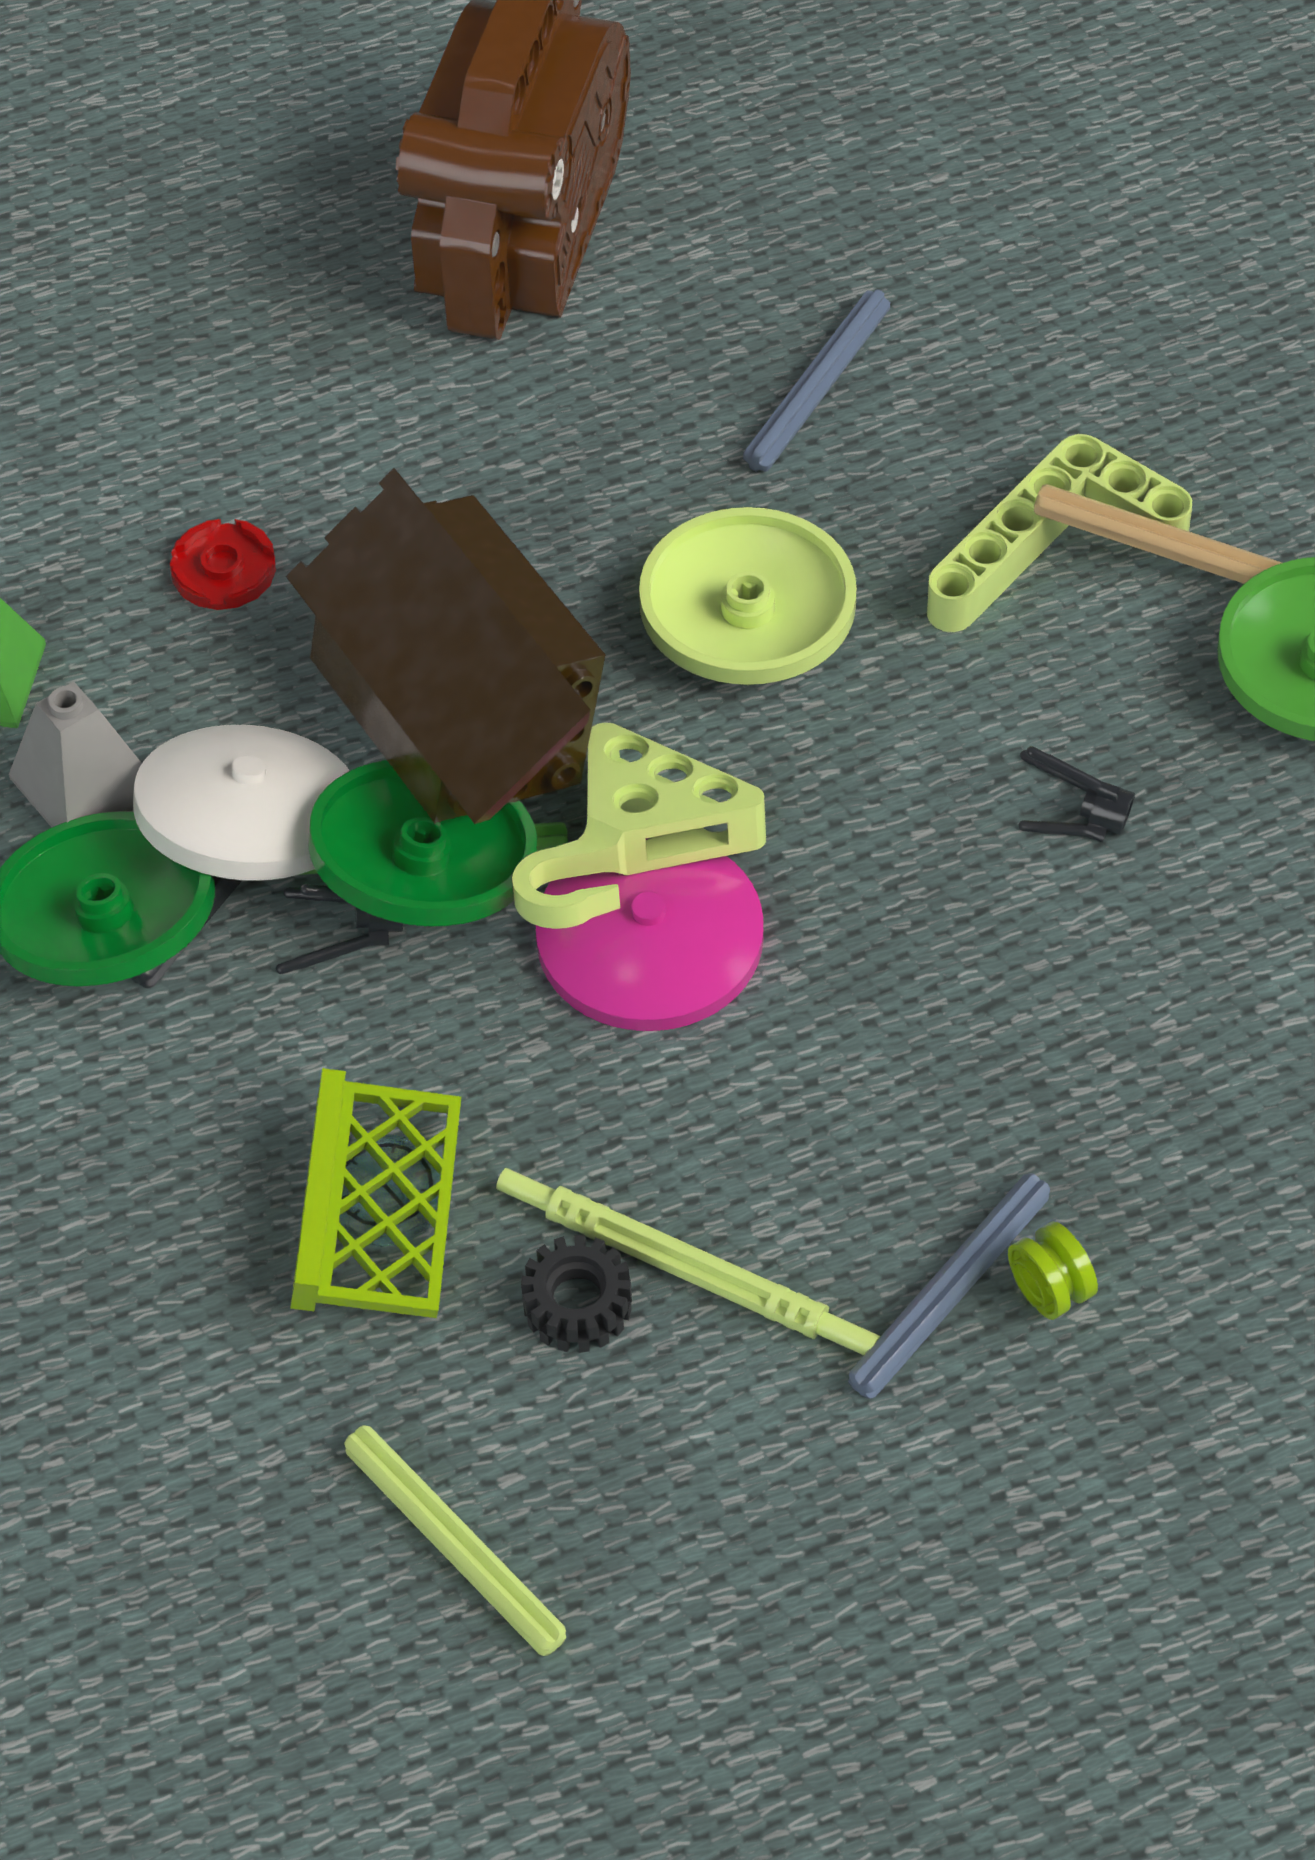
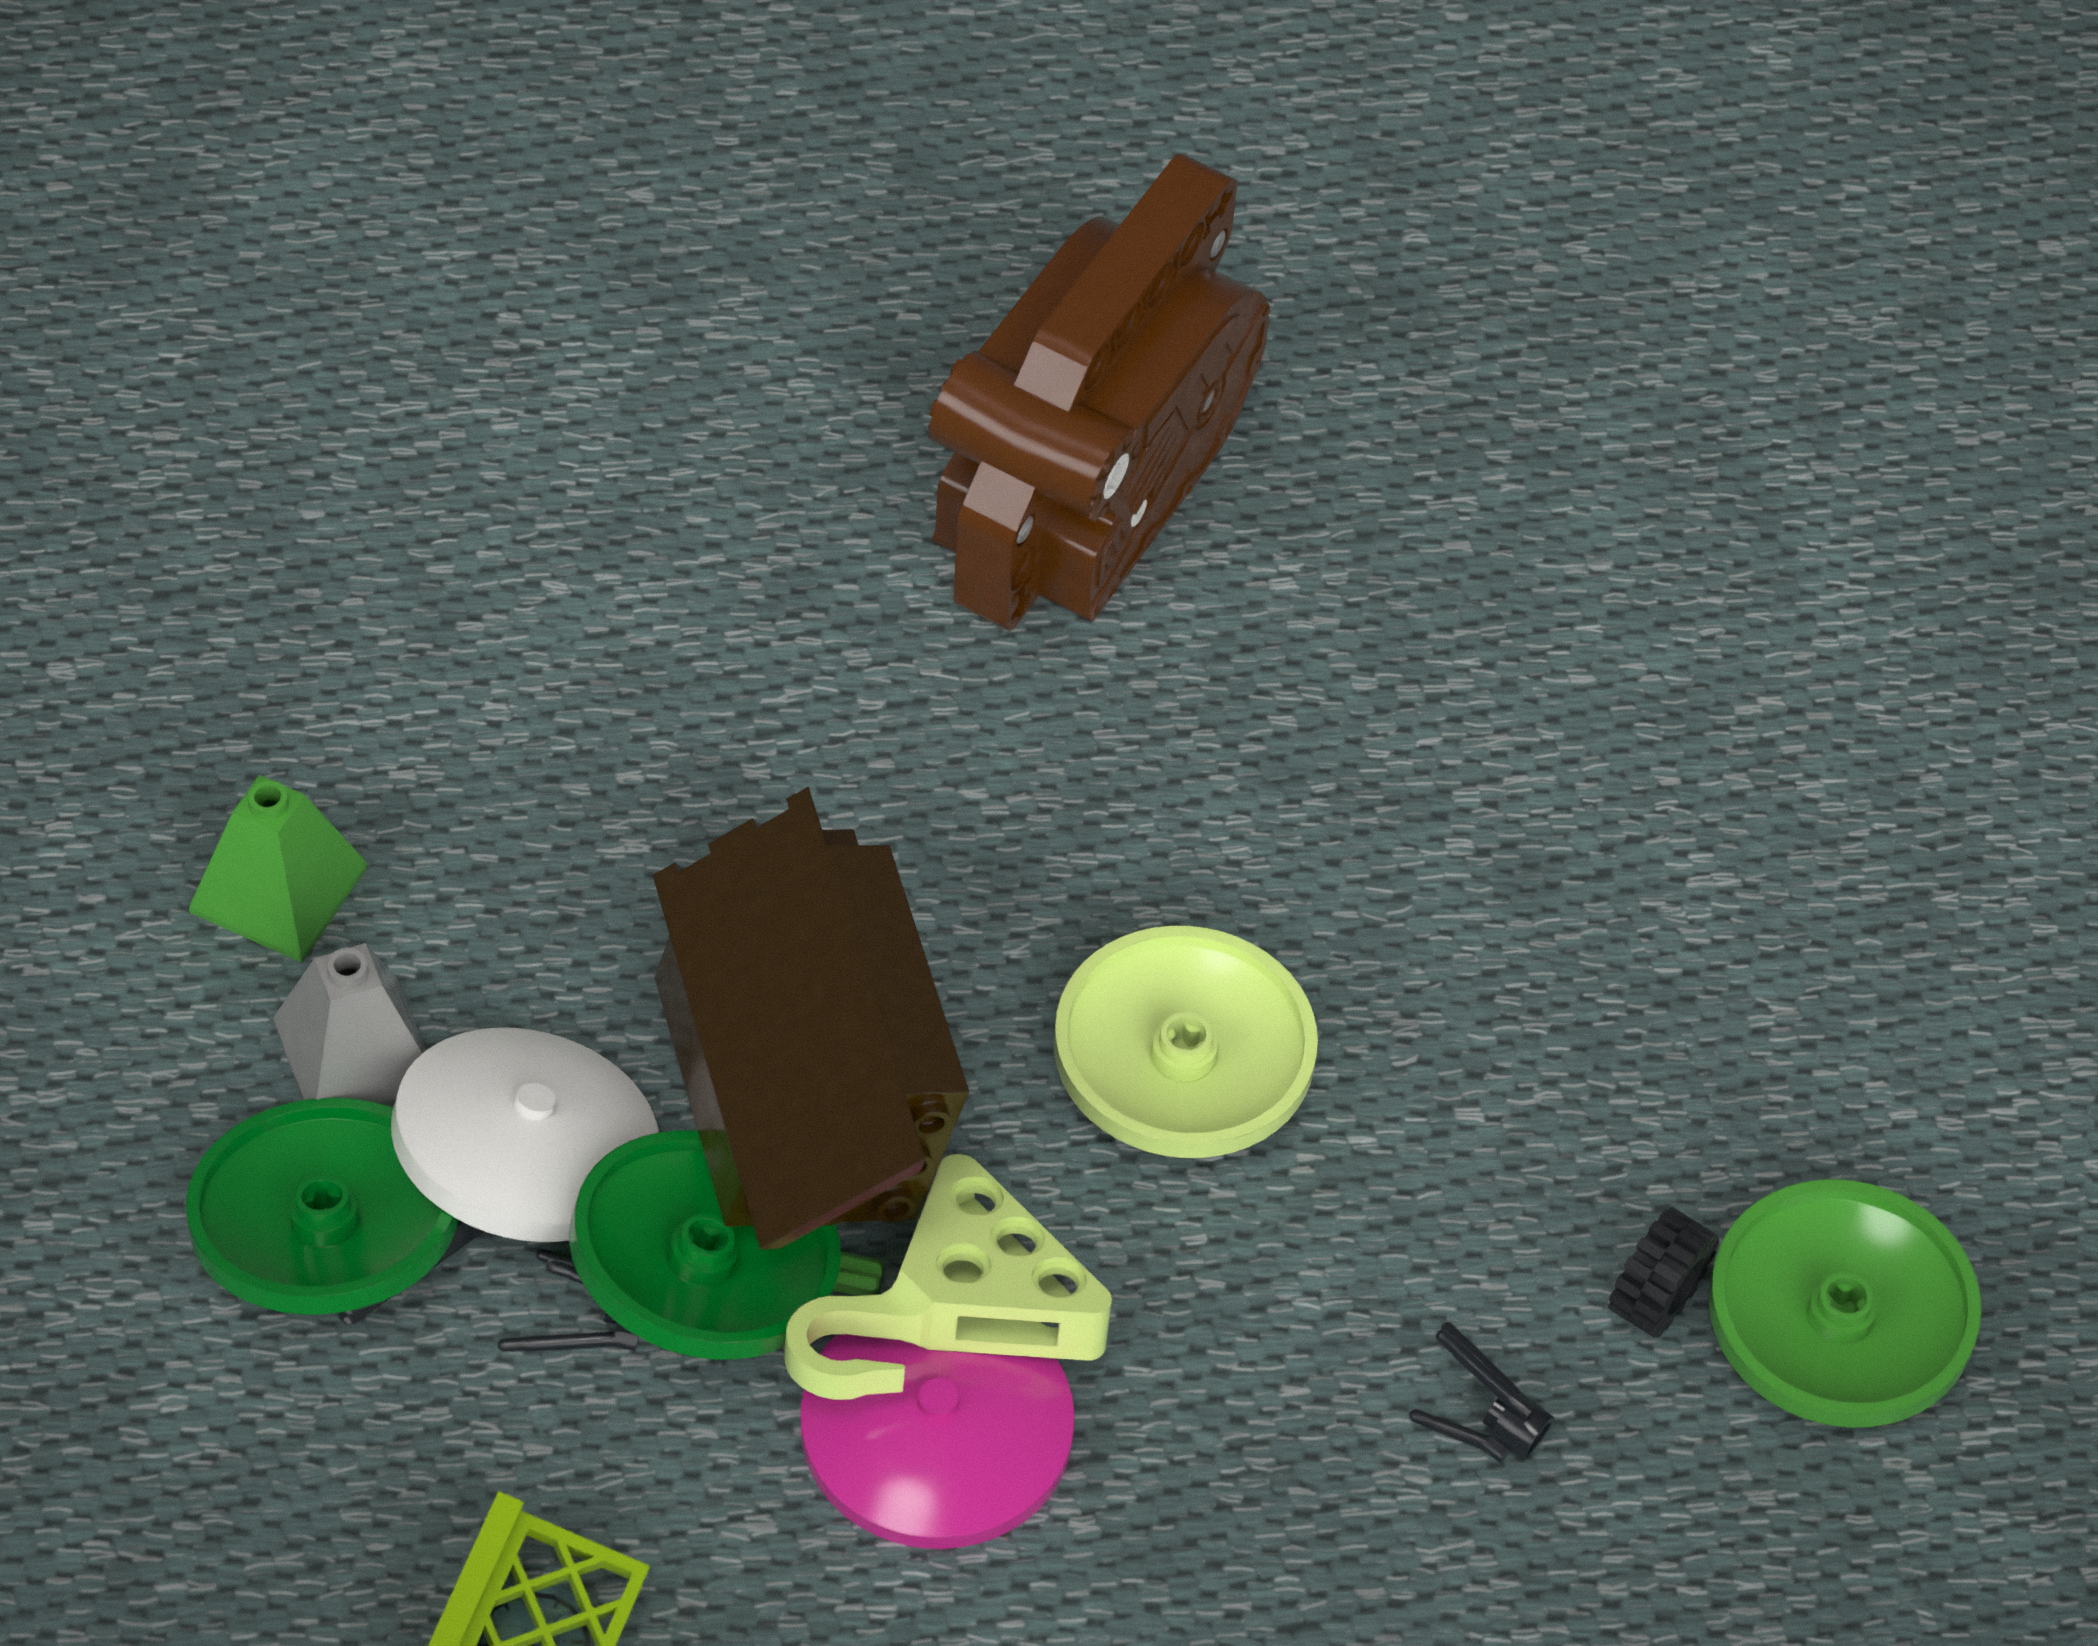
camera: 10 degrees right, 0 degrees up
(225, 579) = (599, 846): red tile -> none
(816, 381) = (1363, 787): sand blue axle -> none
(1015, 535) = (1566, 1042): yellowish green beam -> none
(1149, 535) = (1684, 1100): tan axle -> none
(1182, 663) = (1663, 1272): none -> black tyre

